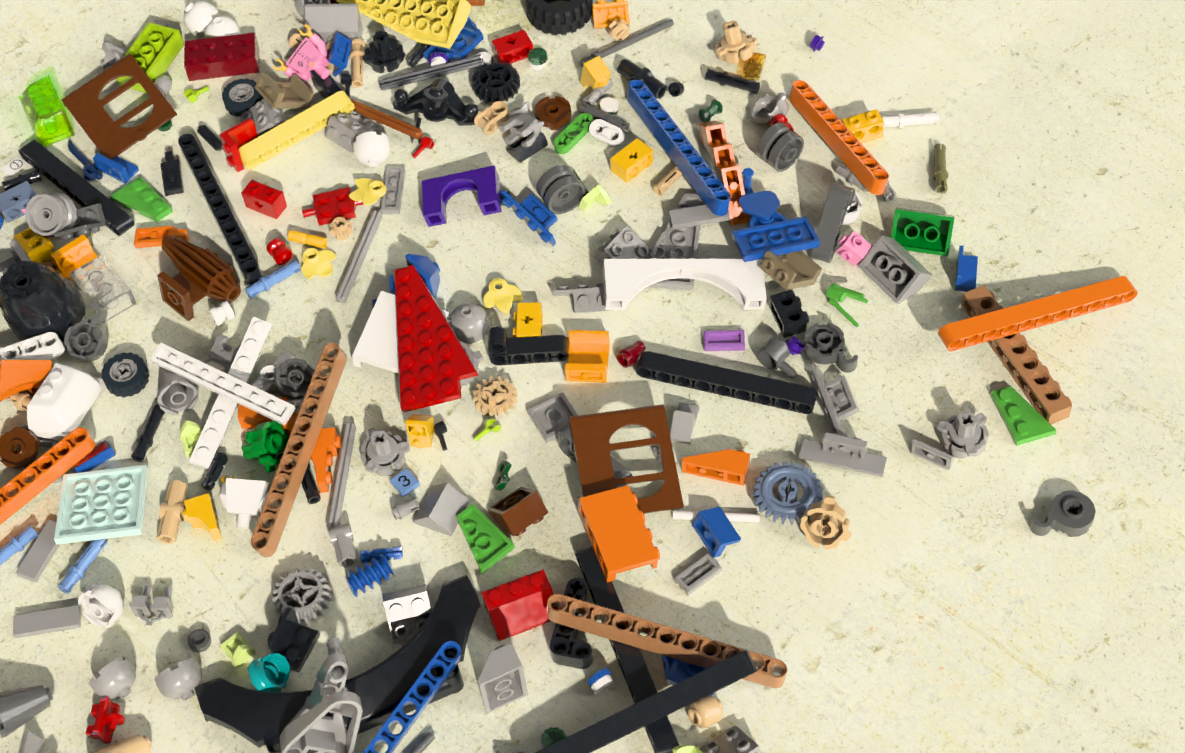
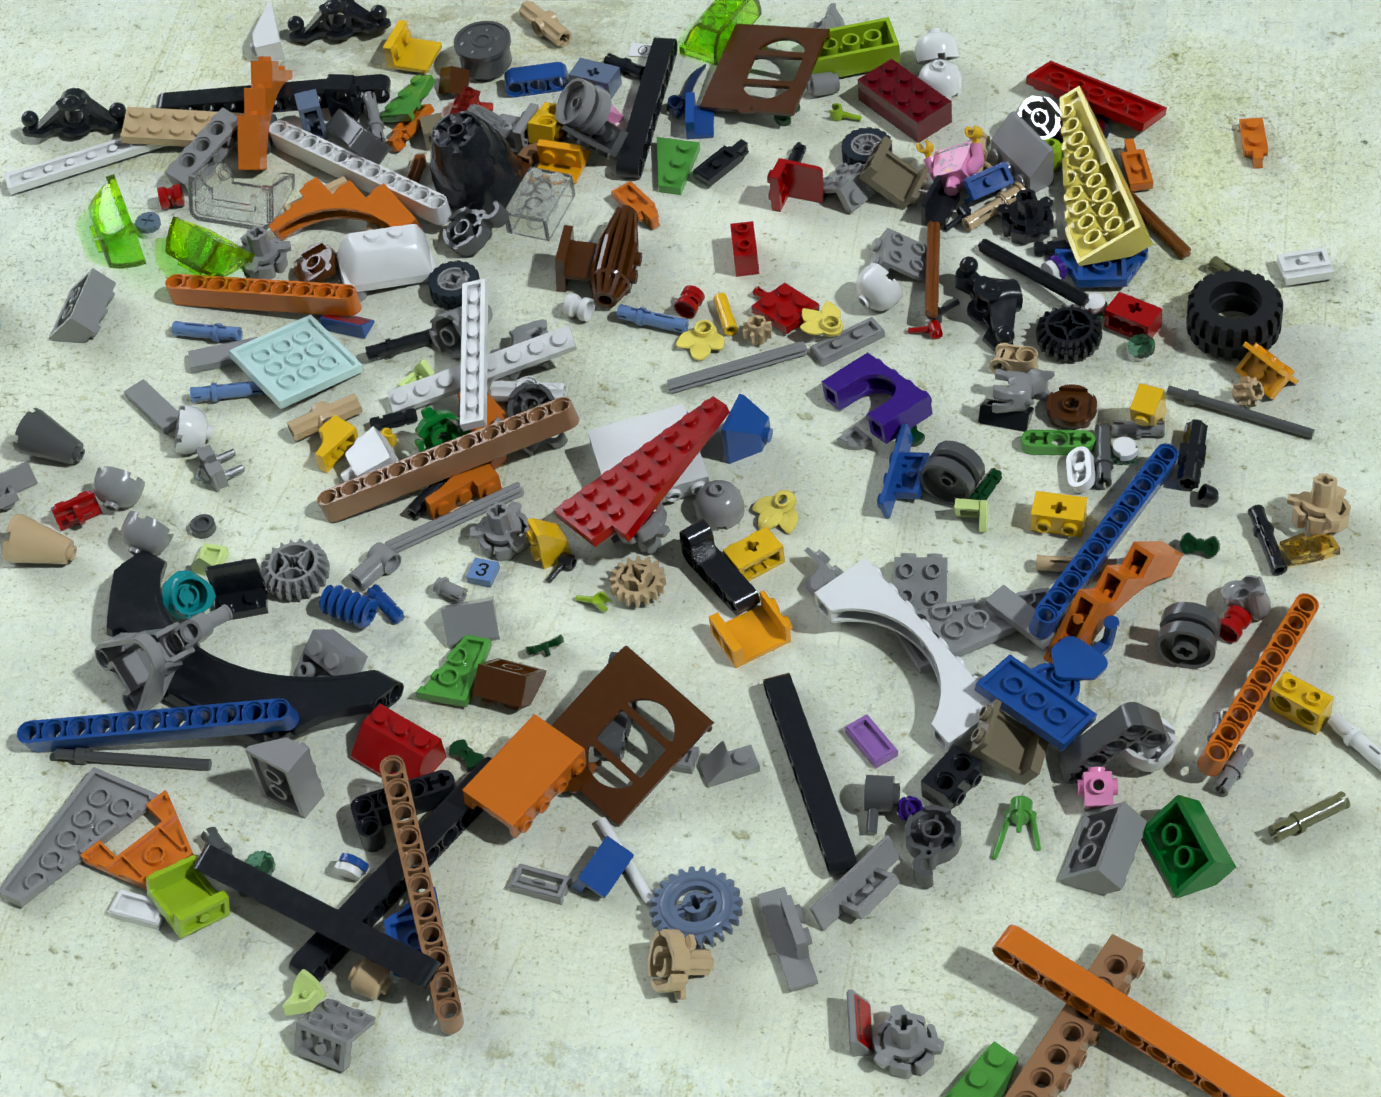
camera: 60 degrees right, 5 degrees down
(220, 209) = (706, 224): black beam -> none
(294, 130) = (854, 214): light yellow beam -> none
(478, 228) = (854, 440): none -> light grey tile
(551, 416) = (657, 645): light grey tile -> none
(563, 565) = (460, 749): none -> dark green piece
(630, 354) = (780, 664): dark red cone -> none
(720, 465) = (693, 829): orange slope -> none
(965, 271) = (1161, 922): blue panel -> none

